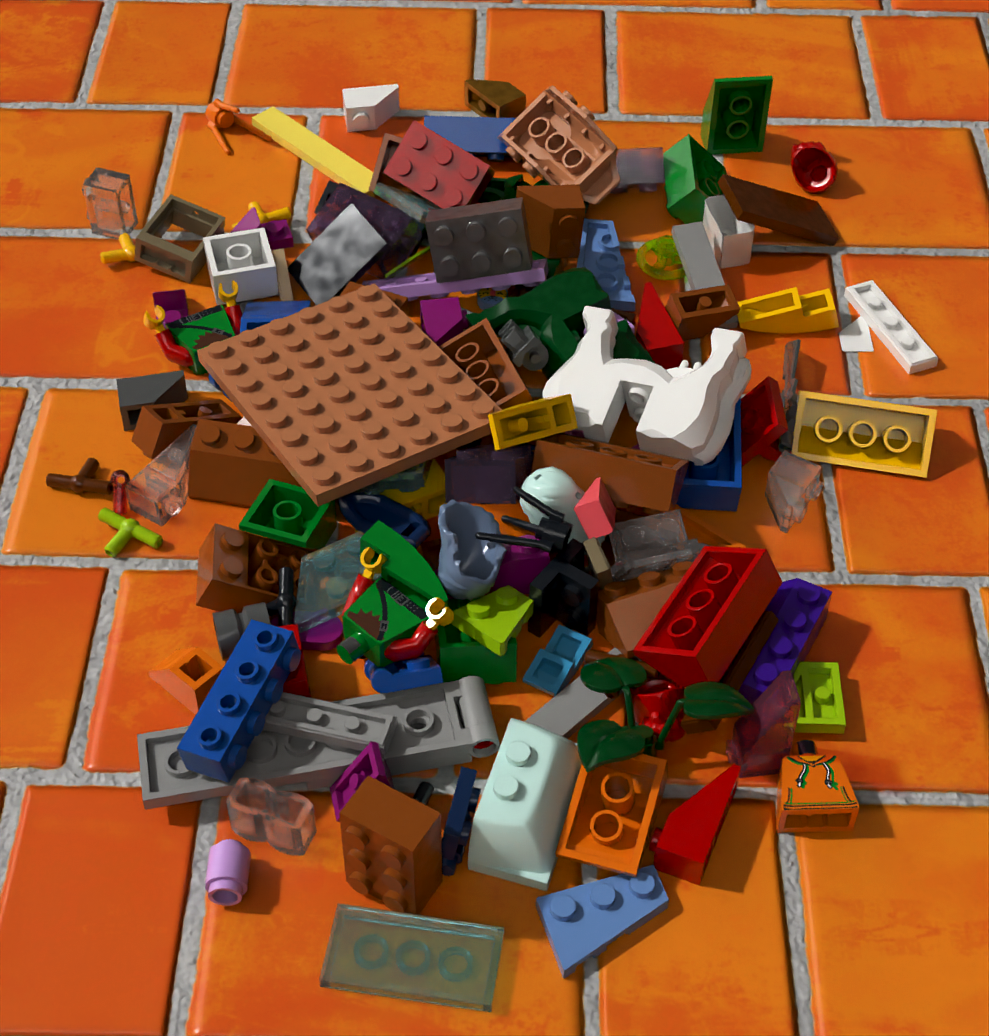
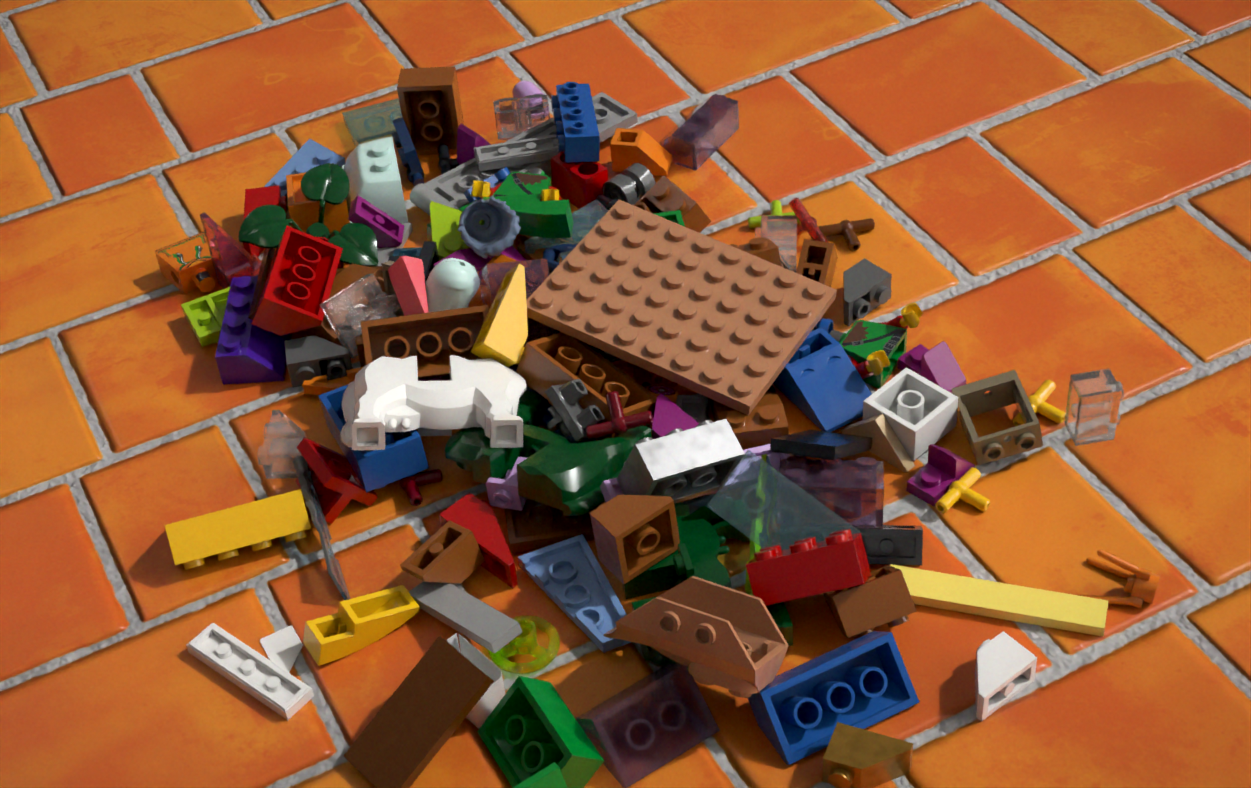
camera: 155 degrees right, 5 degrees down
(89, 690) = (702, 131): none -> slope
(490, 311) = (618, 423): none -> dark red piece
(551, 532) = (433, 256): black plant -> none
(568, 709) = (387, 230): none -> magenta slope

